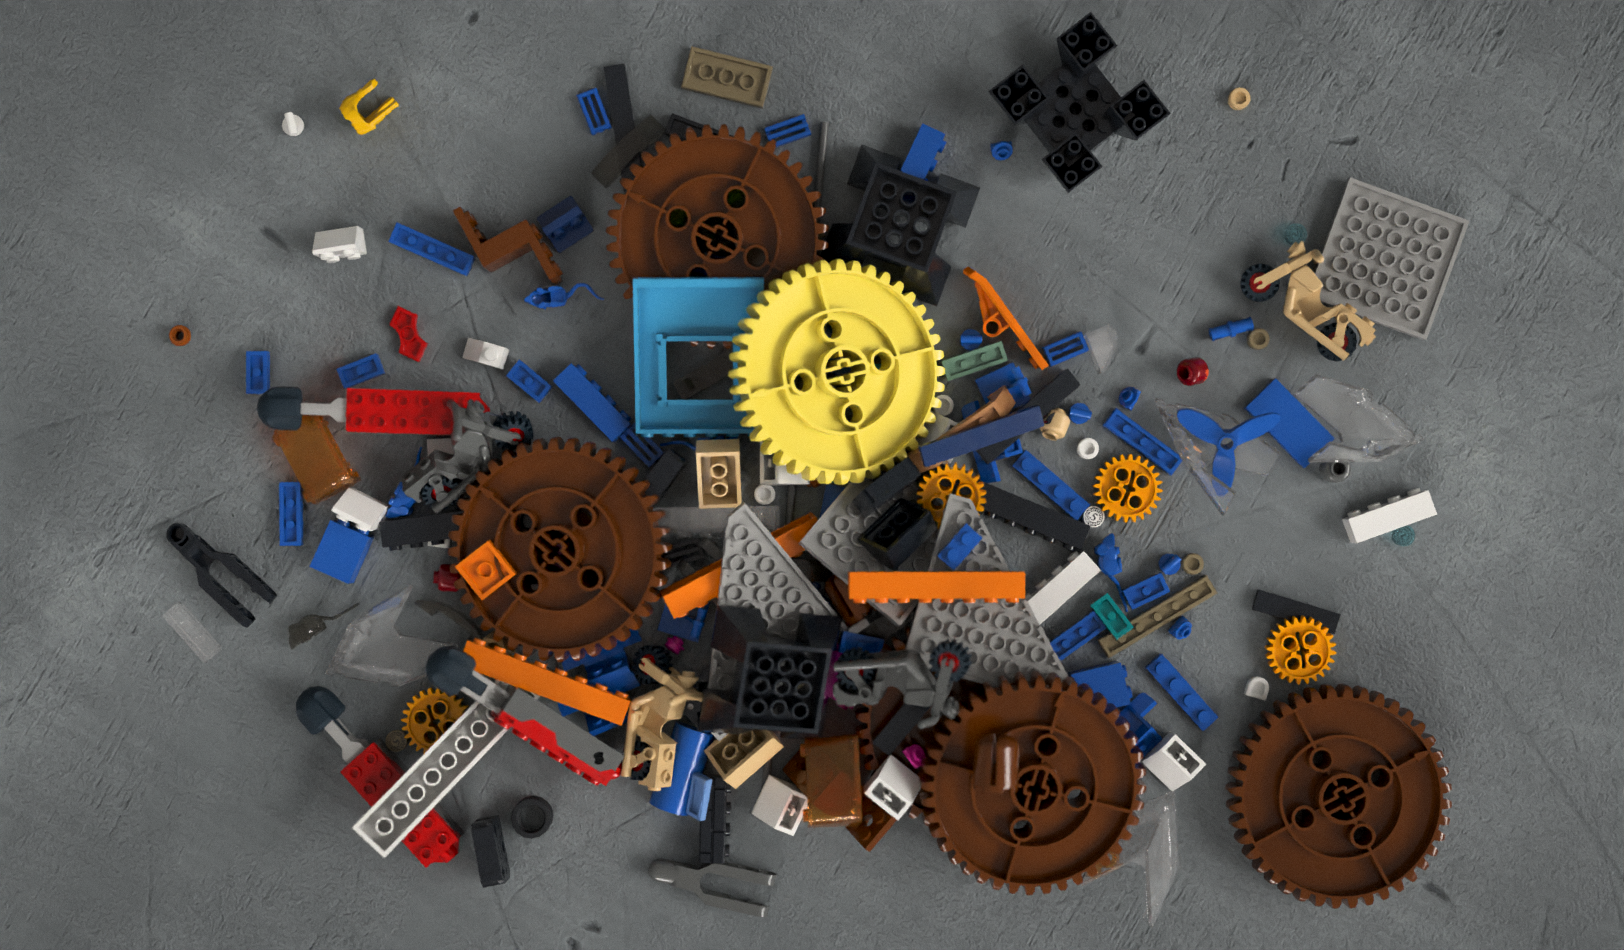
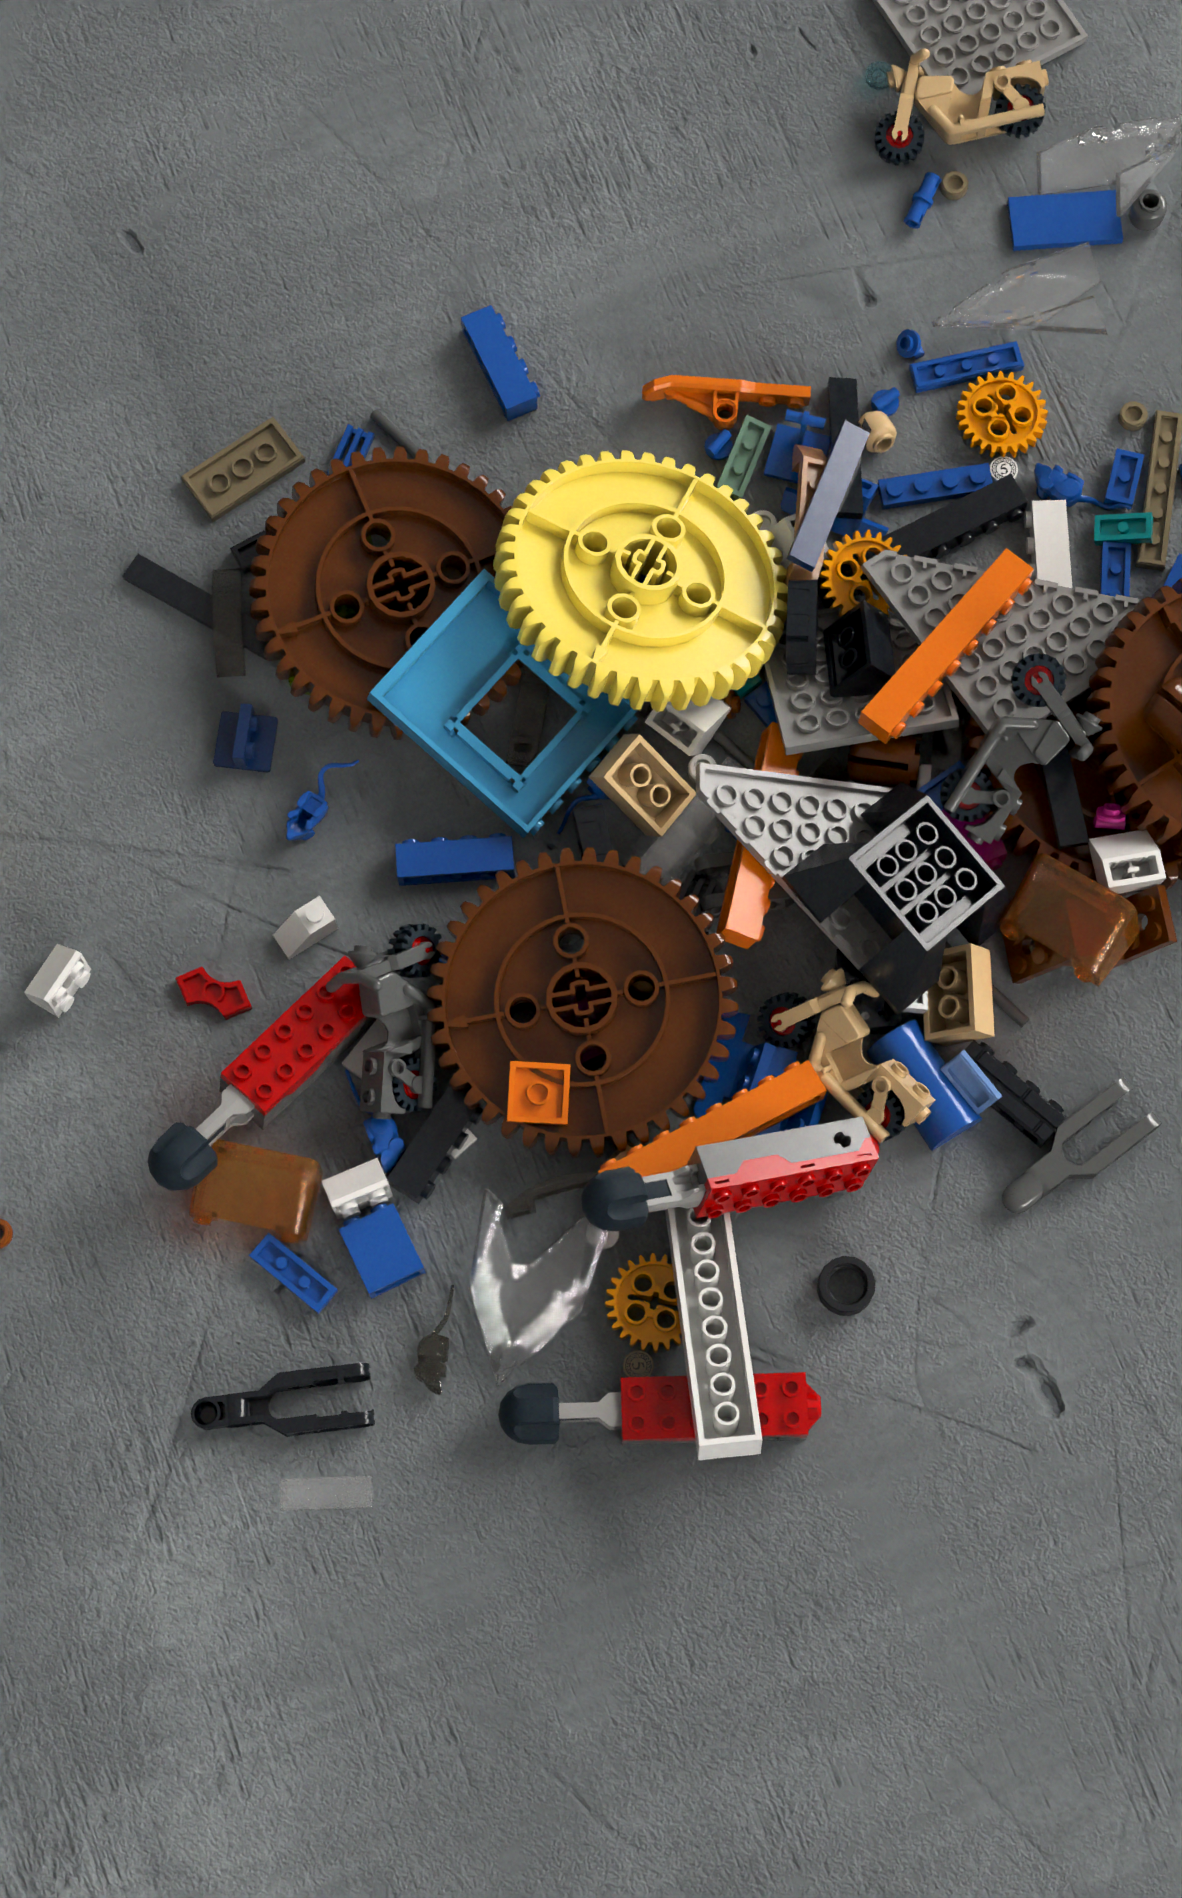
camera: 50 degrees left, 15 degrees down
(257, 372) = (112, 1182): blue plate -> none
(360, 371) = (206, 1074): blue plate -> none
(432, 249) = (148, 894): blue plate -> none
(445, 578) = (509, 1159): dark red head -> none
(490, 851) = (847, 1354): black axle -> none
(508, 245) = (218, 807): reddish brown bracket -> none
(529, 381) = (374, 907): blue plate -> none
(600, 128) = (154, 632): blue tile -> none
(642, 445) = (539, 839): blue tile -> none
(674, 644) = (783, 983): dark pink plate -> none
(687, 627) = (770, 955): blue plate -> none
(780, 805) = (1051, 1007): white slope -> none
(932, 205) = (528, 441): black slope -> none
(959, 546) = (925, 595): blue plate -> none
(1001, 150) = (553, 271): blue plate -> none
(1037, 104) = (555, 149): black slope -> none
(1048, 355) = (814, 345): blue tile -> none
(1087, 448) = (927, 423): white tile -> none
(1101, 346) = (835, 330): clear slope -> none
(1169, 564) = (1114, 435): blue plate -> none
(1192, 371) = (934, 264): dark red head -> none
(1213, 433) = (1011, 289): blue piece -> none
(1238, 98) = (699, 25): tan tile -> none

